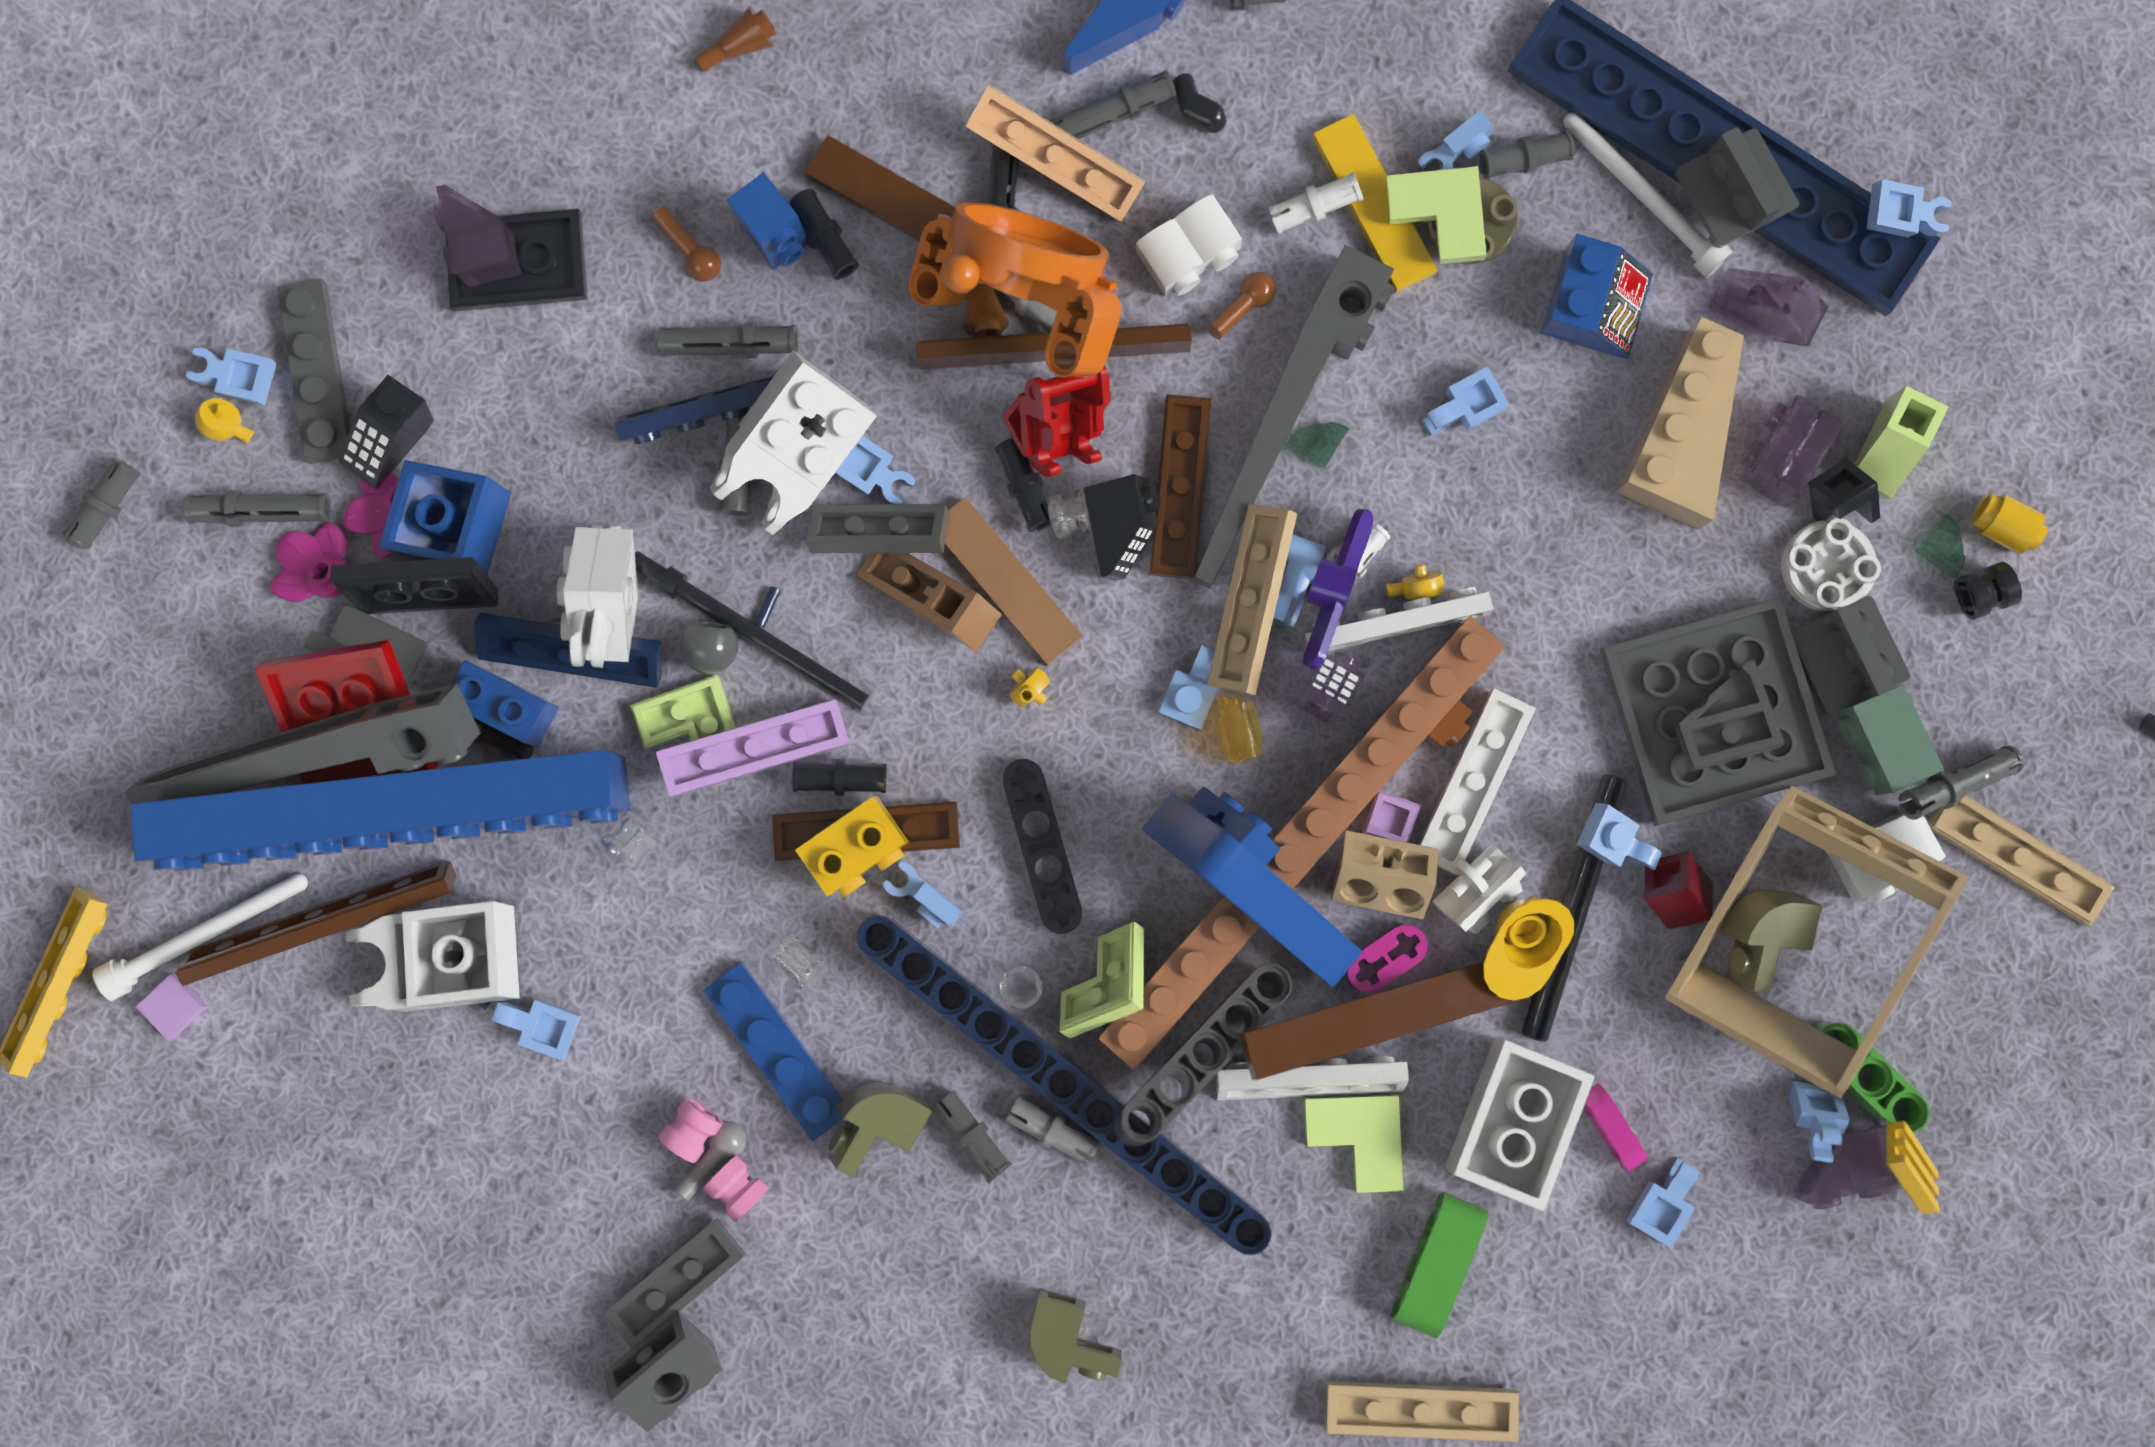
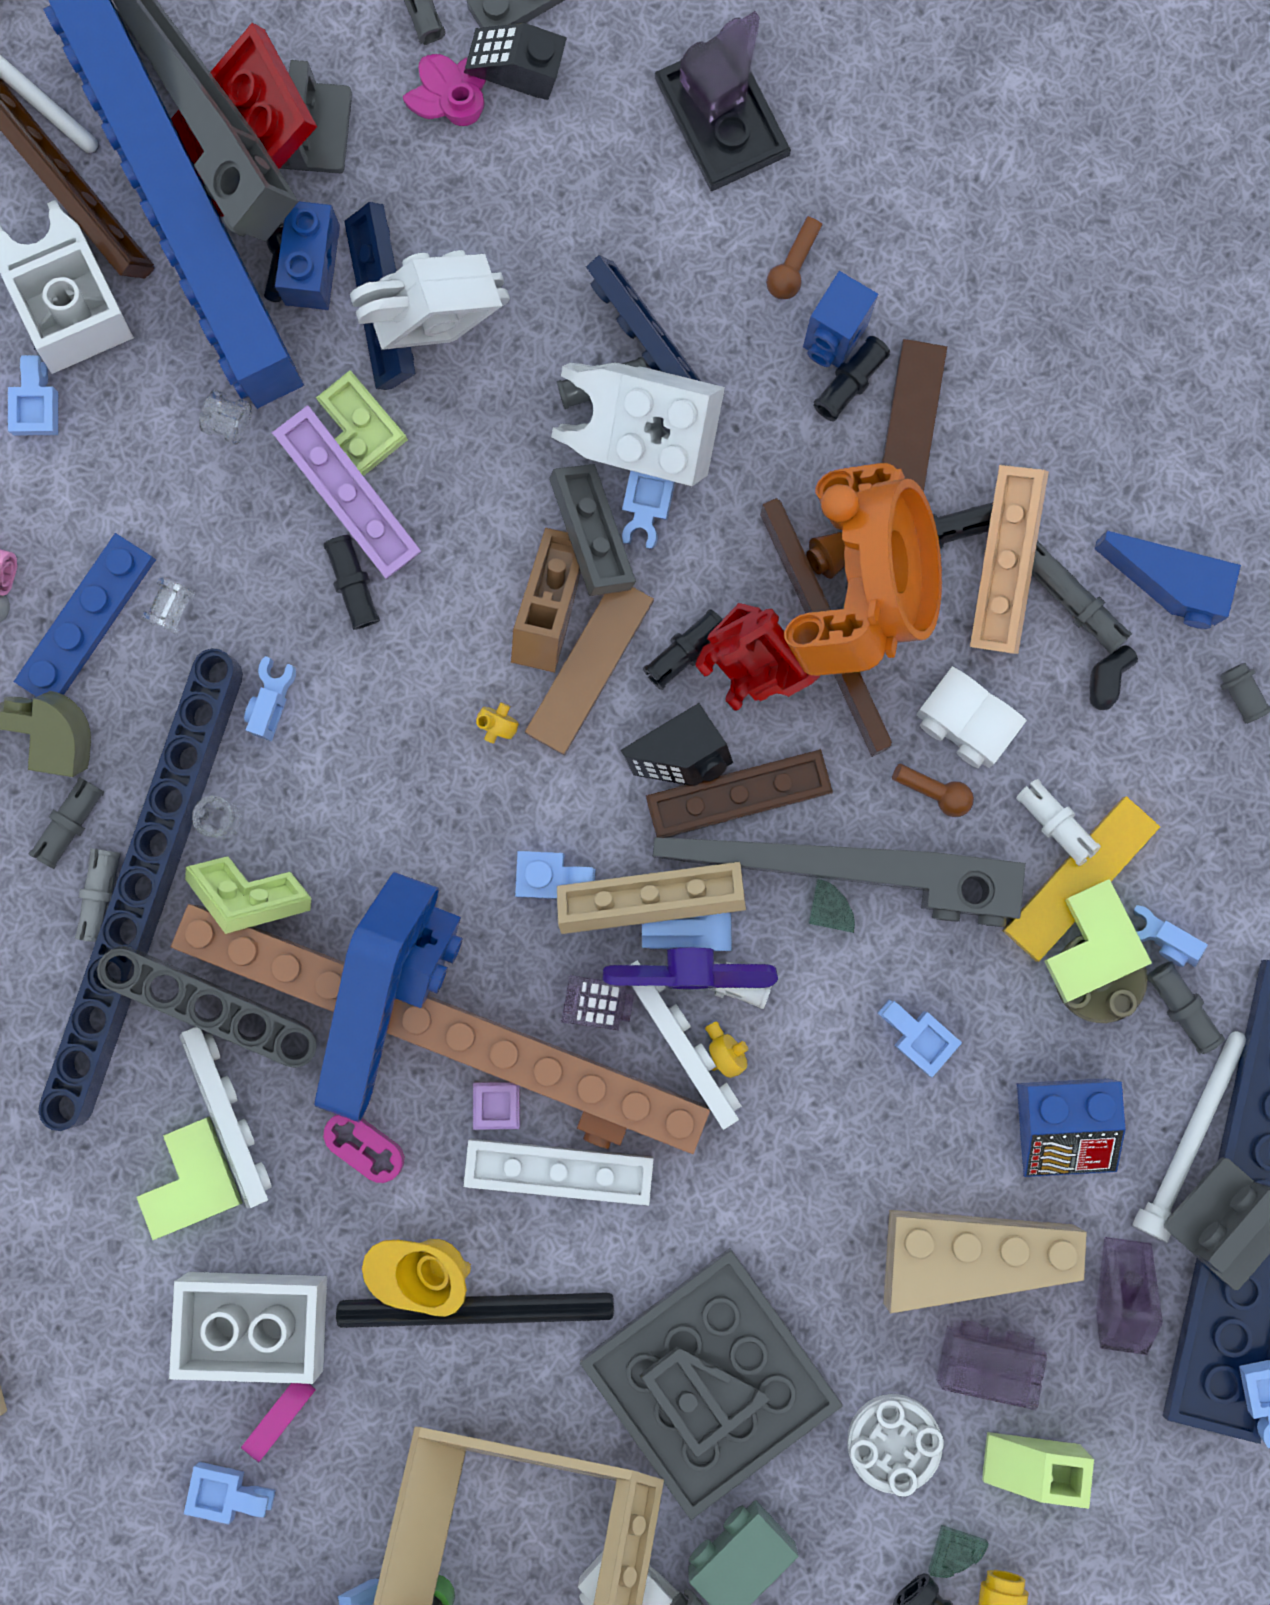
camera: 70 degrees right, 0 degrees up
(306, 561) = (376, 44): dark pink plate -> none
(415, 585) = (384, 137): black tile -> none
(444, 515) = (456, 141): blue slope -> none
(675, 583) = (476, 367): black bar -> none
(709, 646) = (428, 418): dark grey piece -> none
(728, 340) = (725, 346): dark grey pin -> none
(746, 35) = (1013, 237): dark orange cone -> none
(767, 606) = (486, 459): dark blue piece -> none
(852, 847) = (287, 615): yellow brick -> none
(924, 825) = (312, 625): reddish brown tile -> none
(1036, 848) = (351, 784): black beam -> none
(1069, 514) = (669, 698): clear wheel -> none
(1237, 729) = (527, 930): clear yellow brick -> none
(1367, 1021) = (293, 1149): reddish brown tile -> none
(1385, 875) = (437, 1117): tan brick -> none
(1441, 1265) = (95, 1300): bright green beam -> none
(1479, 888) = (457, 1211): white hips -> none
(1611, 839) = (550, 1322): light blue plate -> none
(1679, 891) = (525, 1404): dark red panel -> none
(1761, 927) = (517, 1498): olive brick -> none
(1843, 491) = (967, 1432): black panel -> none
(1849, 656) = (812, 1494): dark grey bracket -> none

